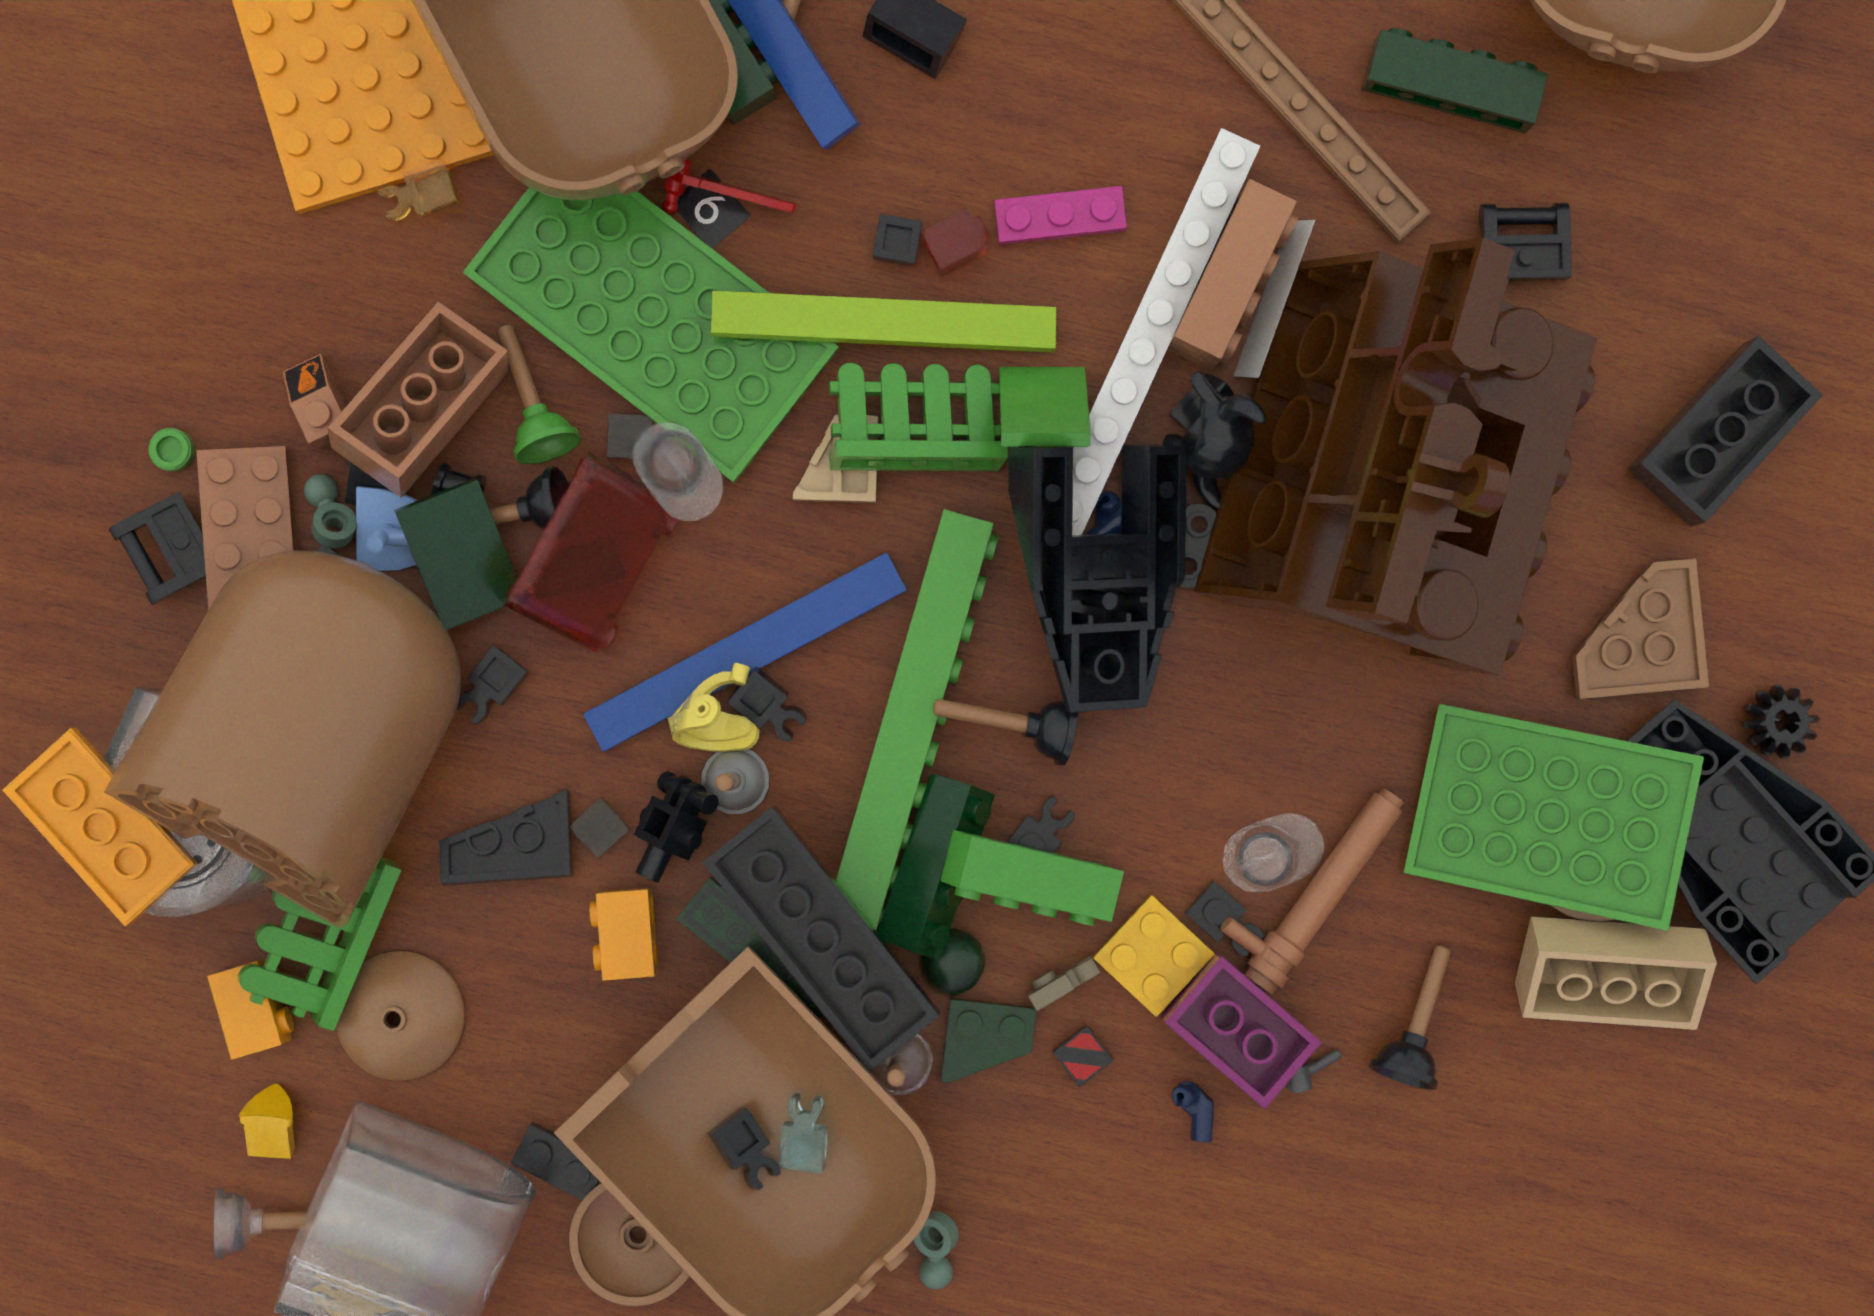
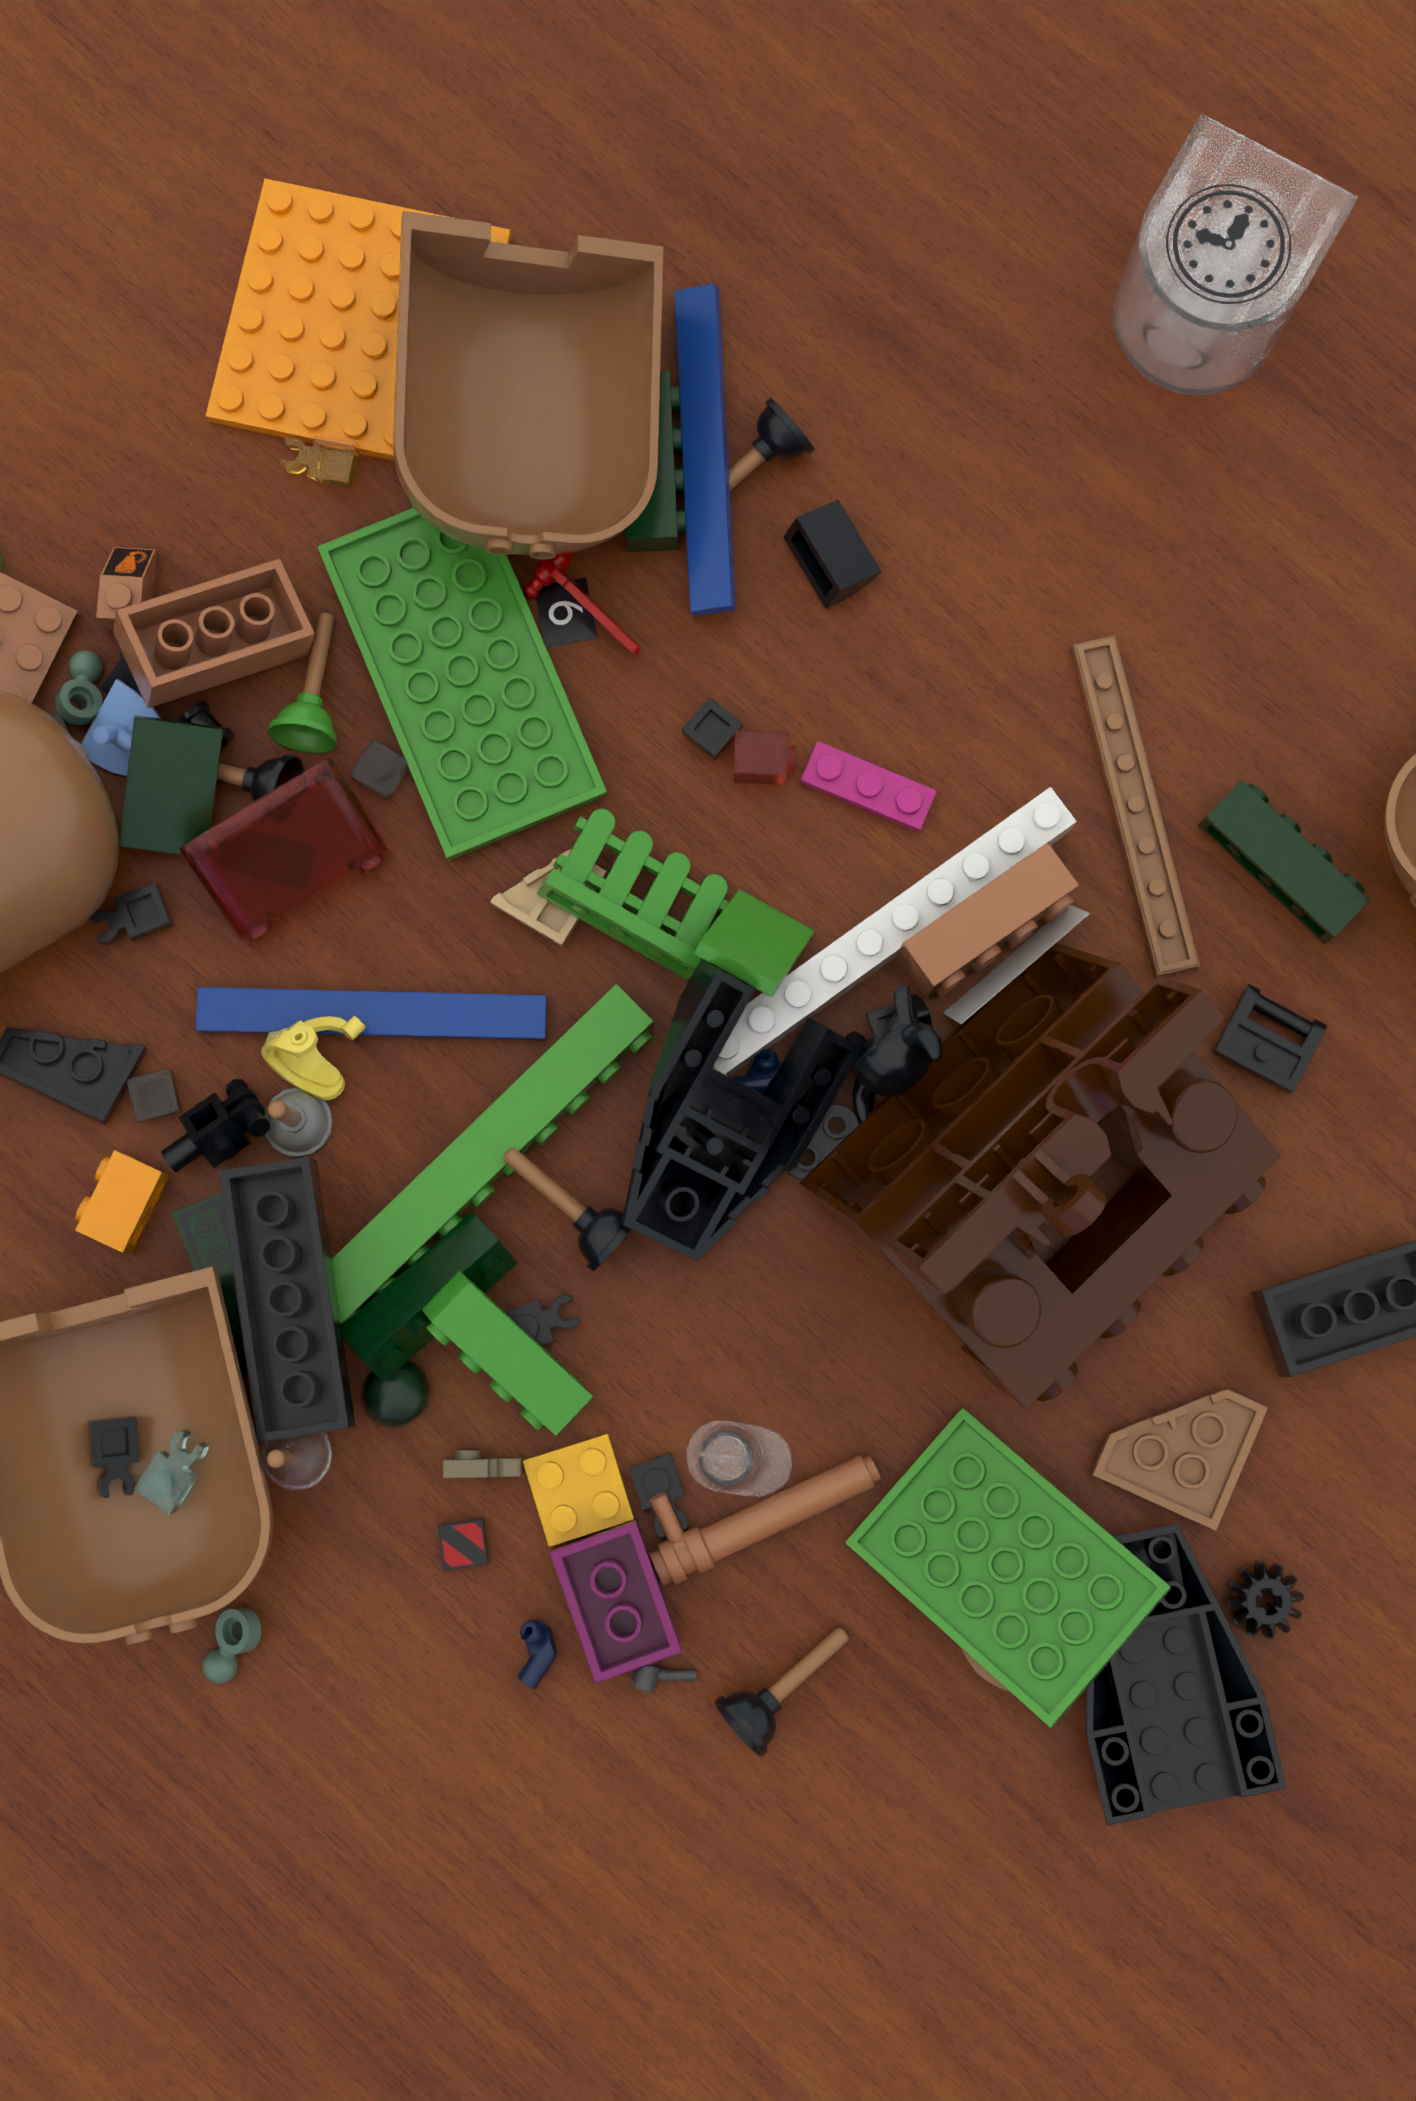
camera: 25 degrees right, 5 degrees down
(678, 471) = (401, 820): clear piece -> none
(763, 701) = (361, 1064): black plate -> none
(883, 321) = (658, 791): lime tile -> none
(984, 1036) = (386, 1476): dark green wing -> none
(1614, 973) = (983, 1742): tan brick -> none

